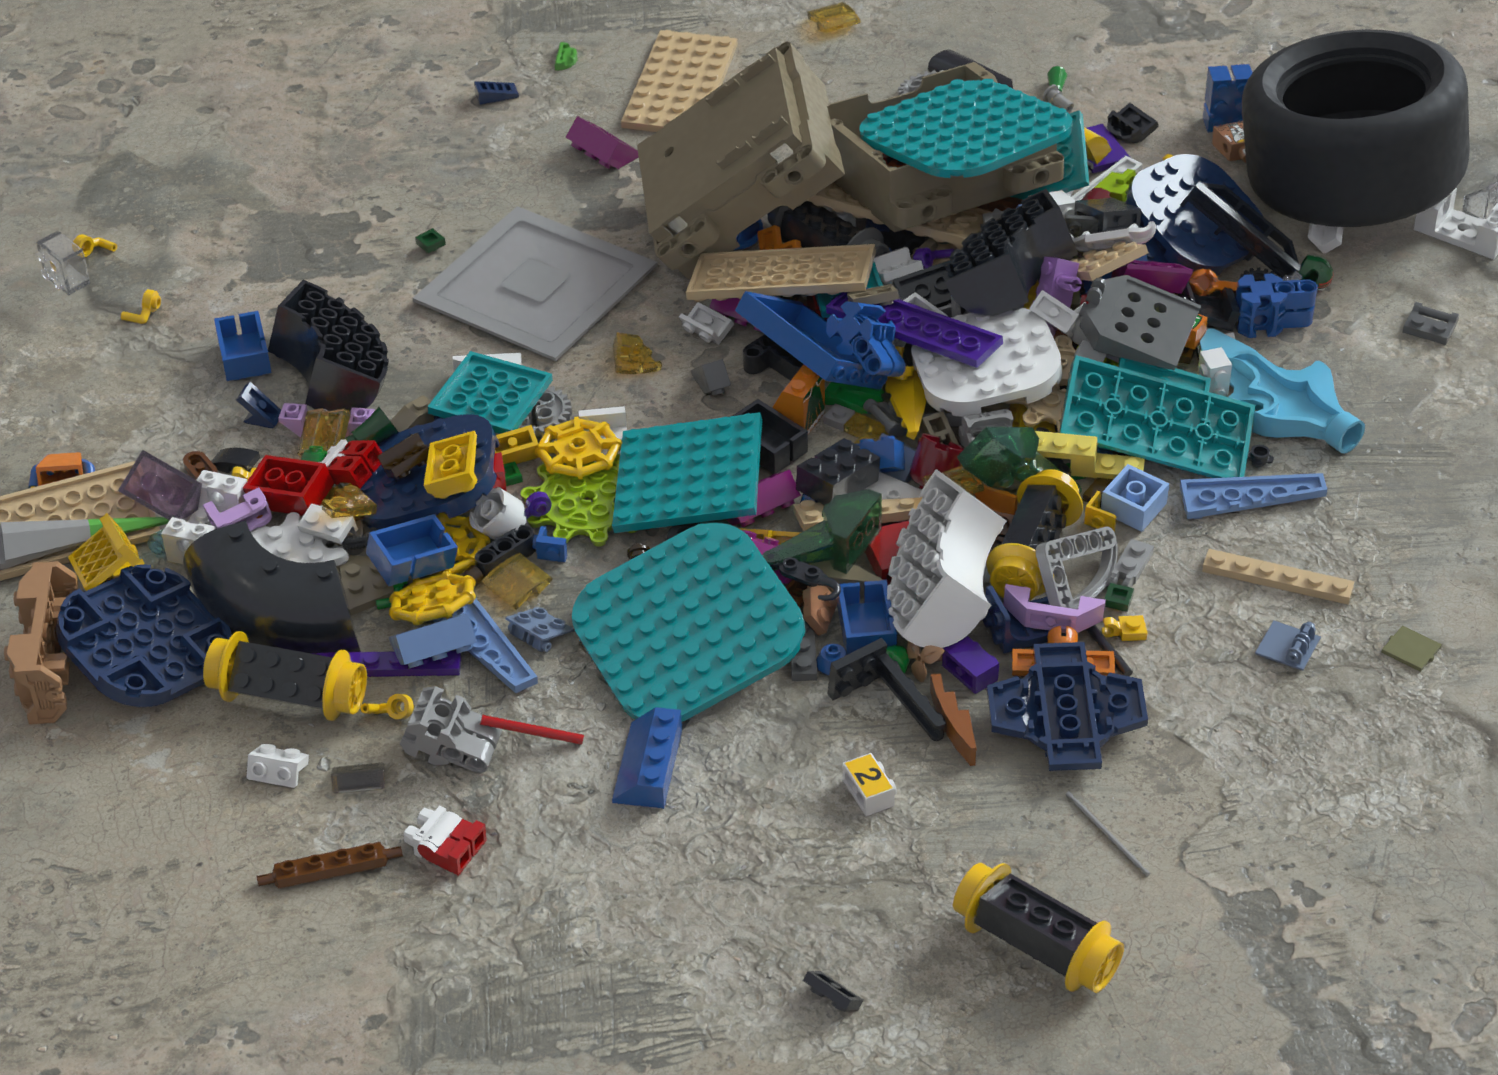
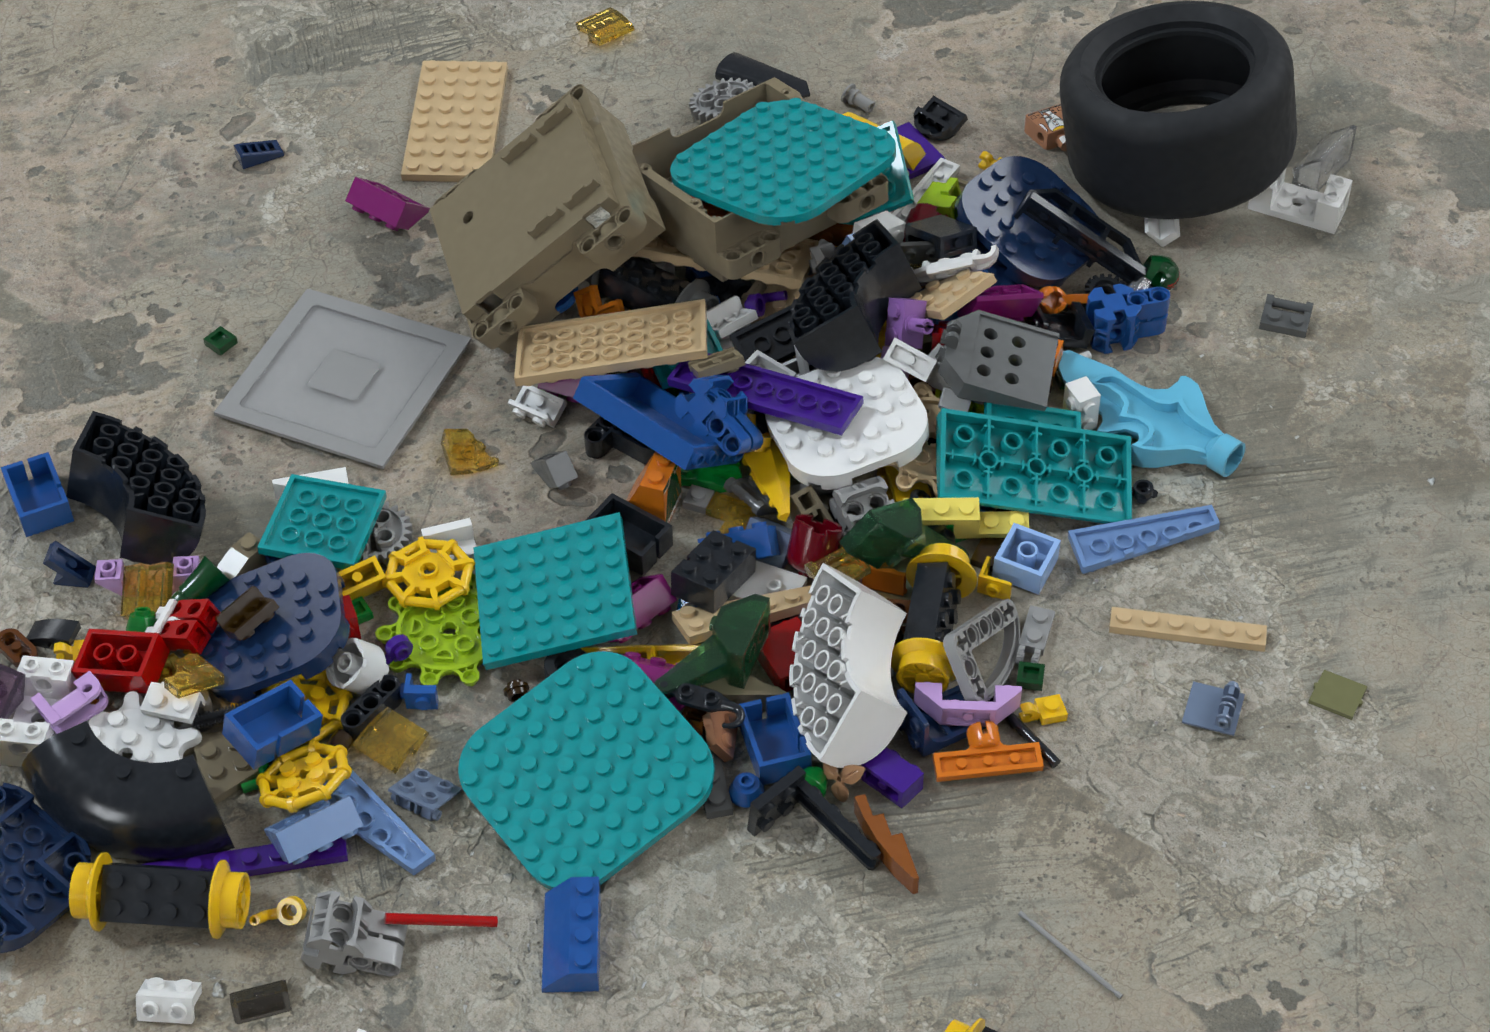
camera: 10 degrees left, 5 degrees up
(451, 465) = (300, 622): yellow slope -> none
(565, 57) = (326, 102): bright green tile -> none
(869, 784) = (812, 933): brick -> none
(1057, 76) = (852, 73): green cone -> none
(1067, 706) = (1003, 814): dark blue plate -> none
(1224, 96) = (1035, 85): blue piece -> none

